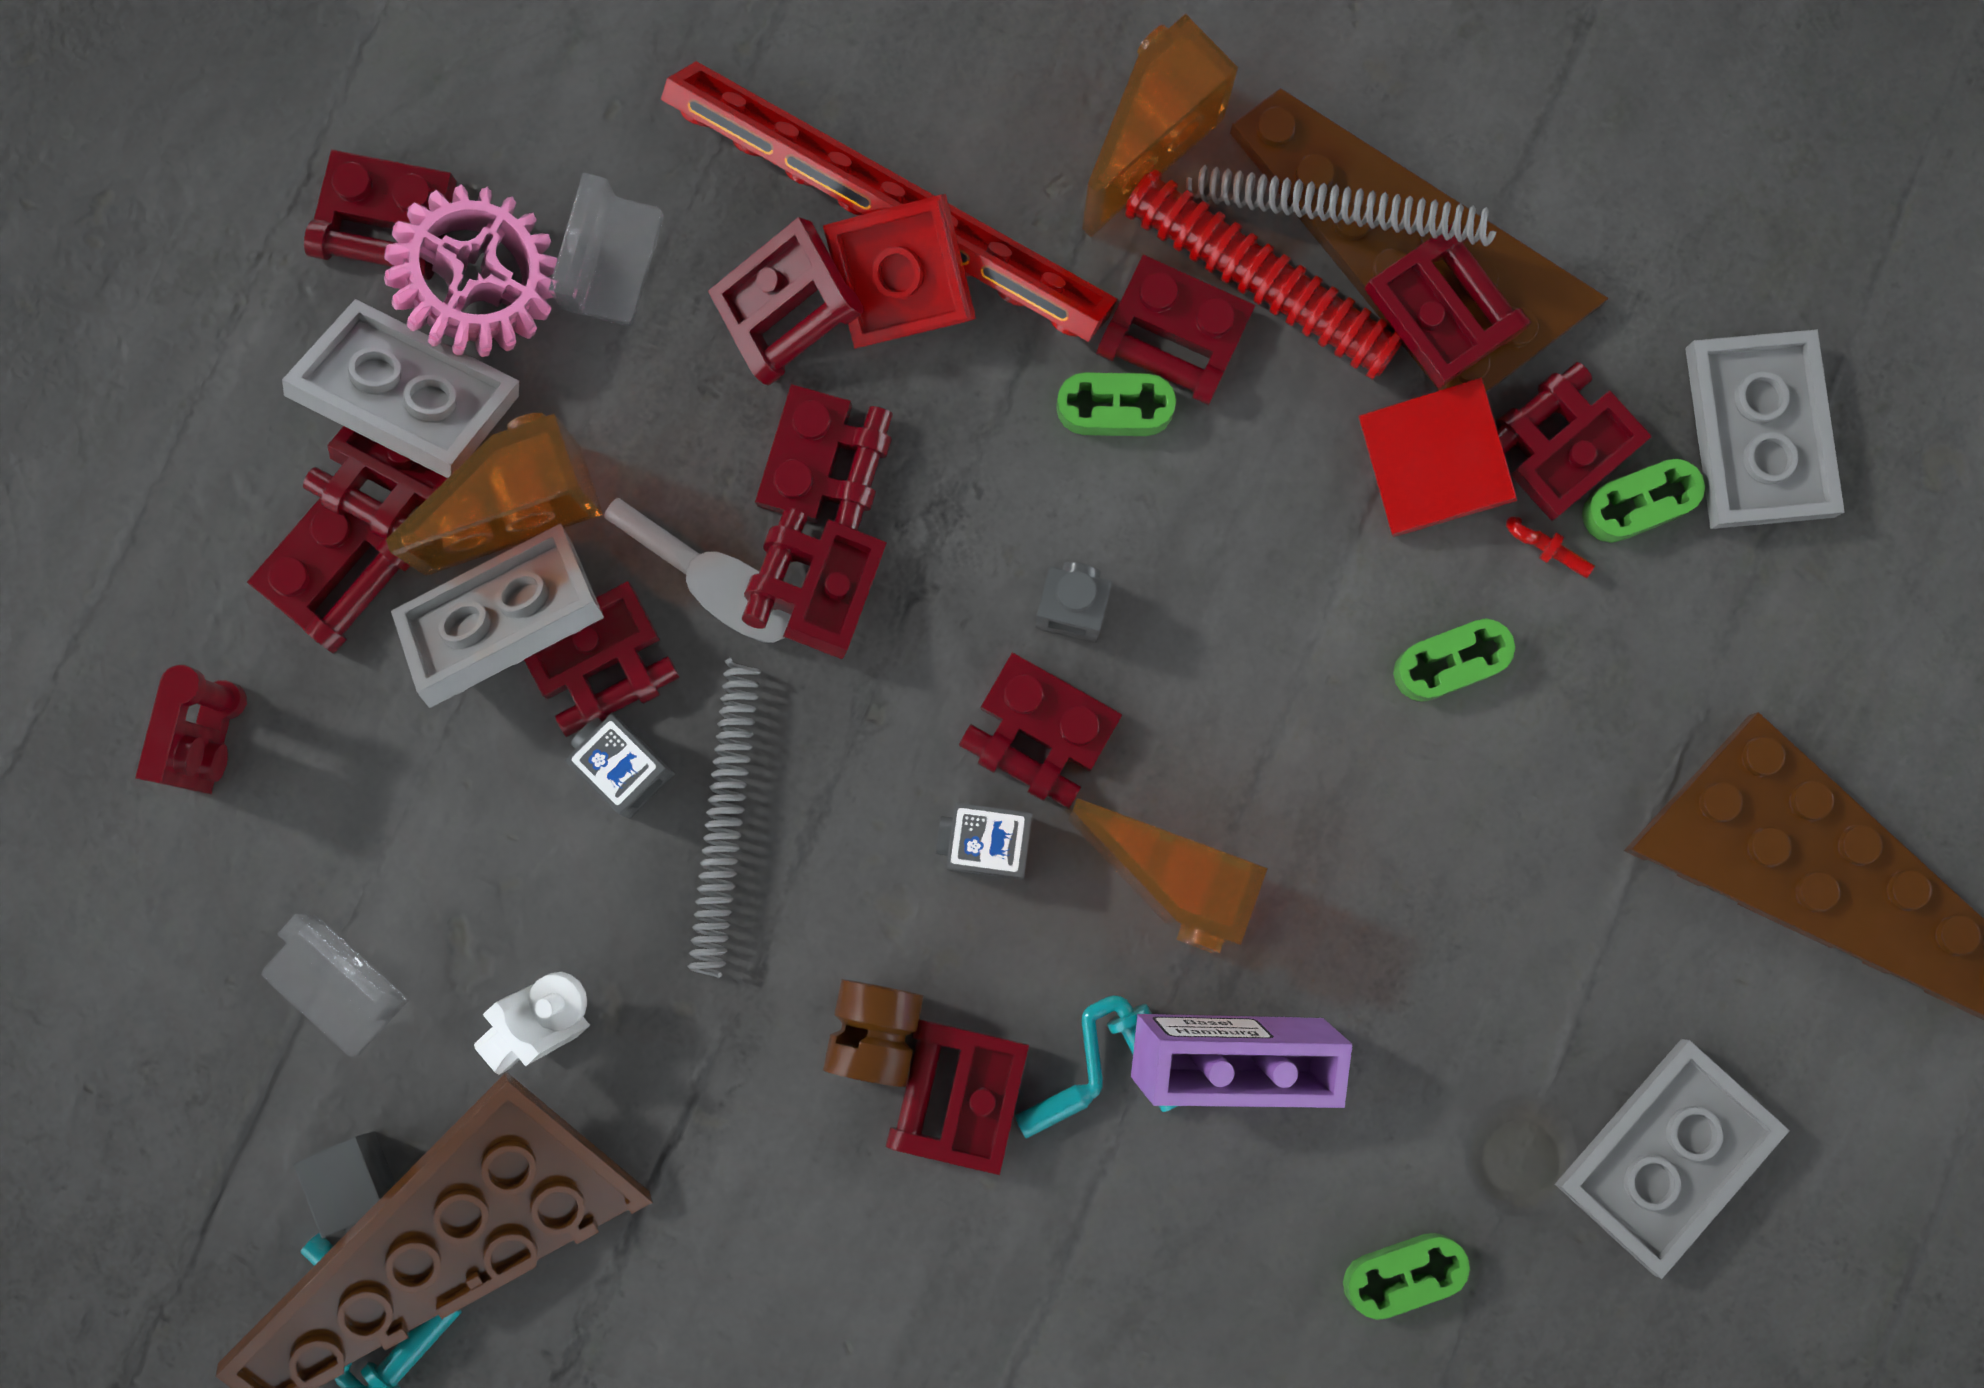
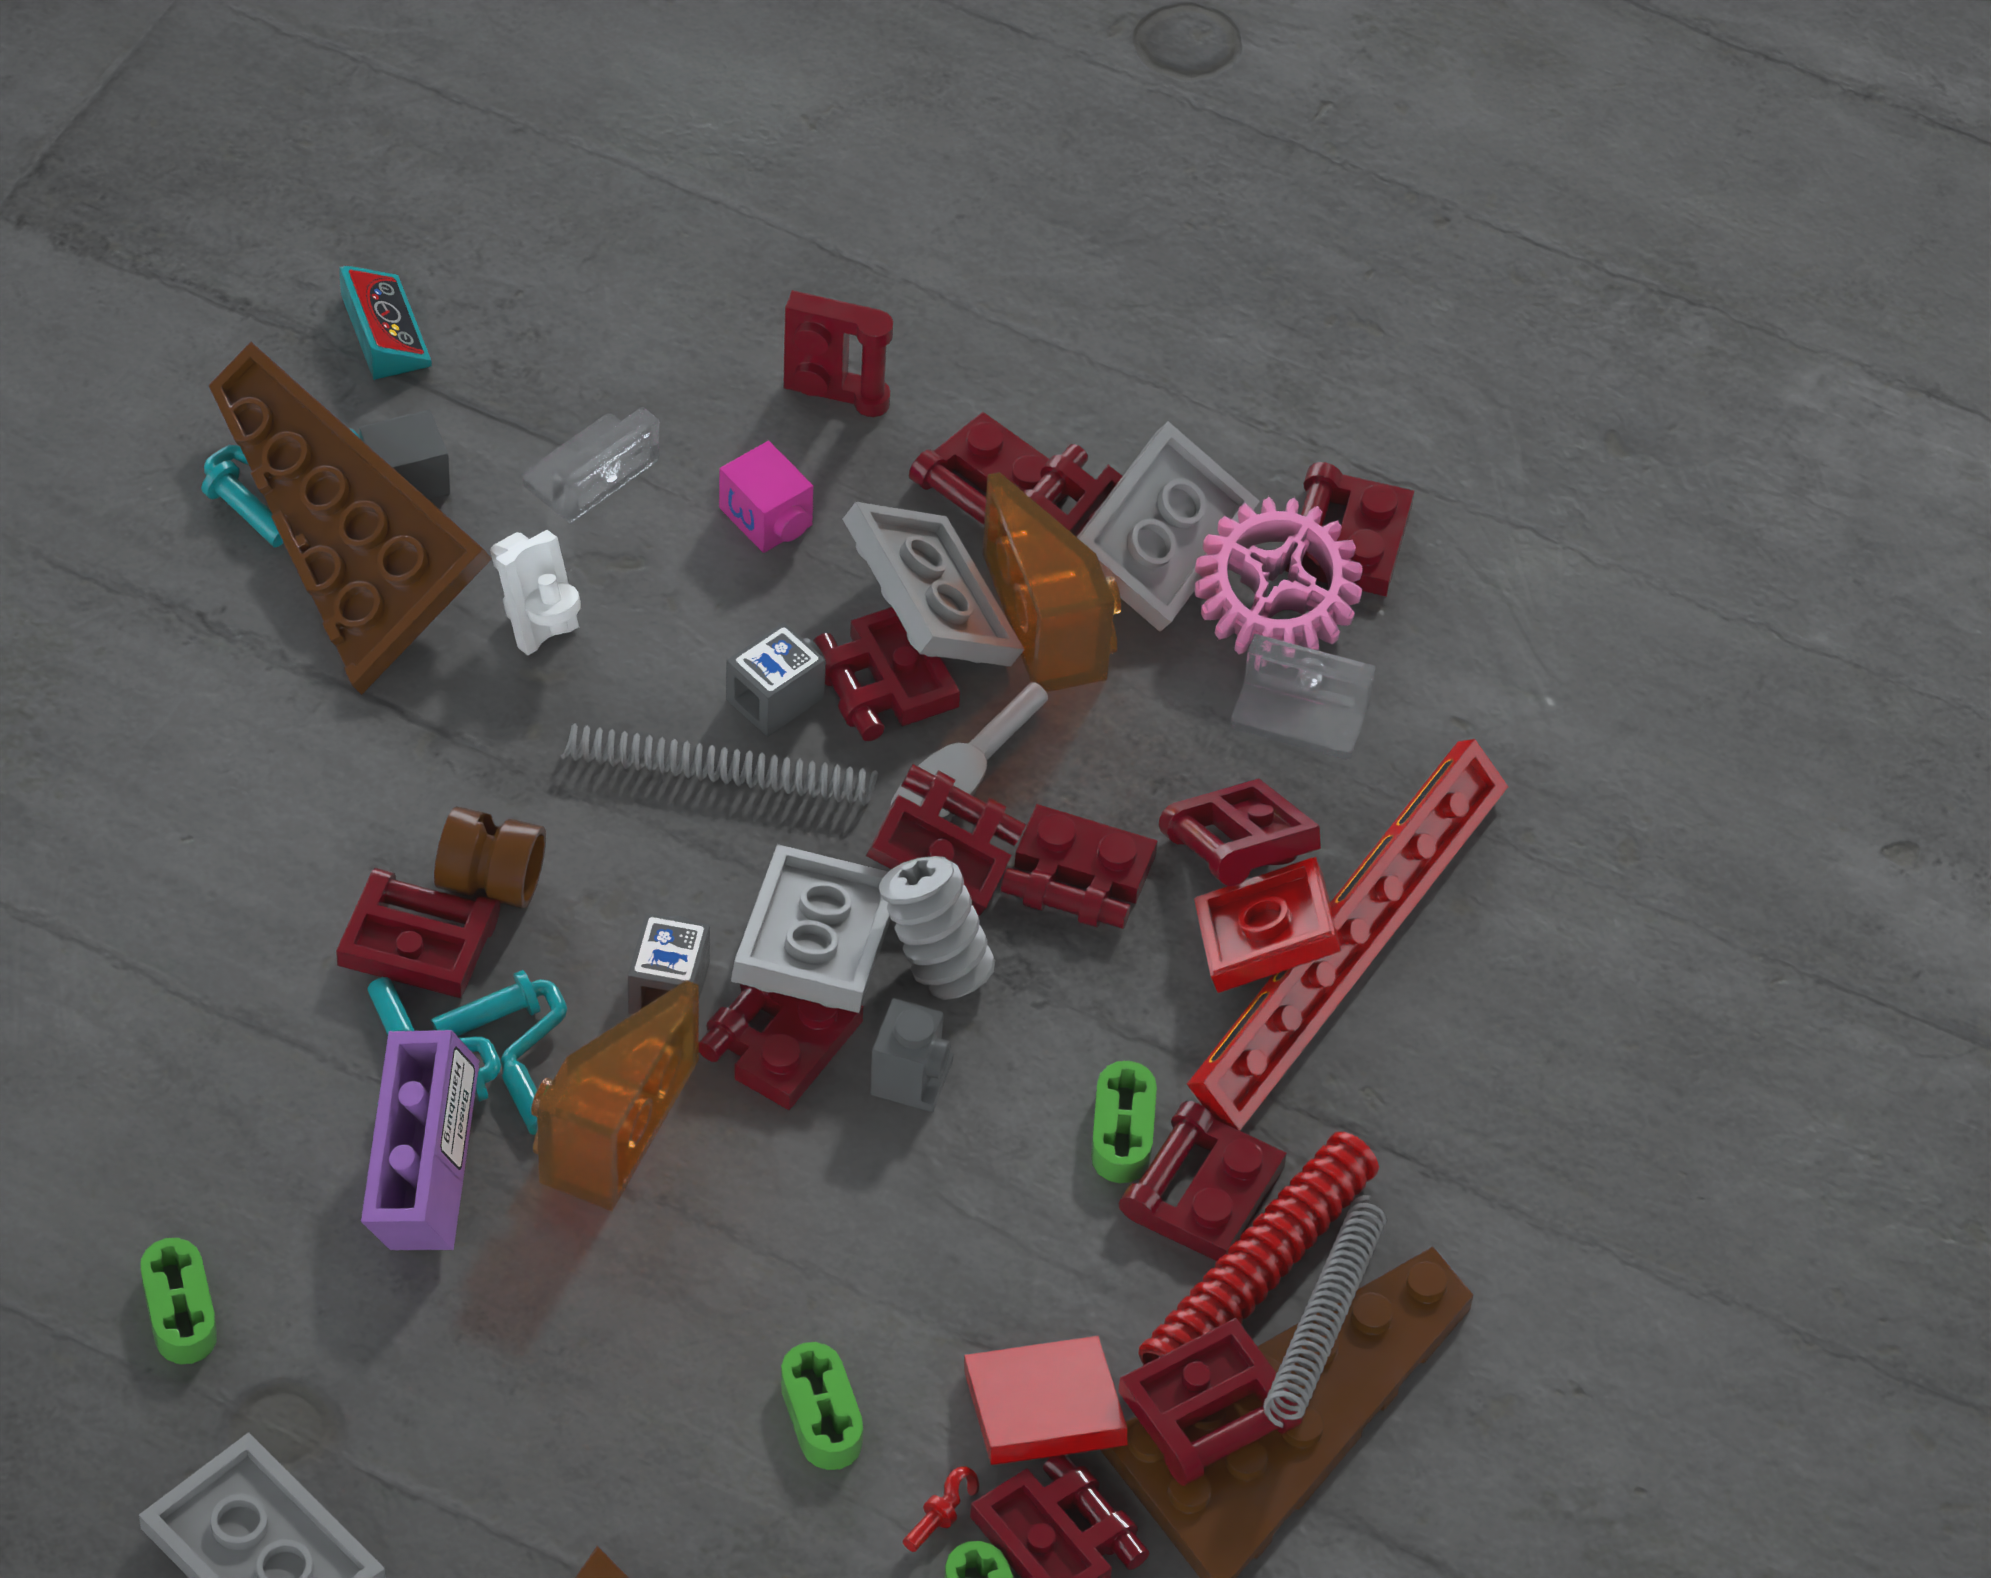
camera: 90 degrees right, 30 degrees down
(142, 1231) = (383, 322): none -> slope
(379, 794) = (766, 496): none -> dark pink brick
(935, 581) = (938, 926): none -> light grey piece
(940, 699) = (814, 930): none -> light grey plate
(1038, 1007) = (503, 1003): none -> teal piece
(1166, 109) = (1435, 1146): clear orange slope -> none

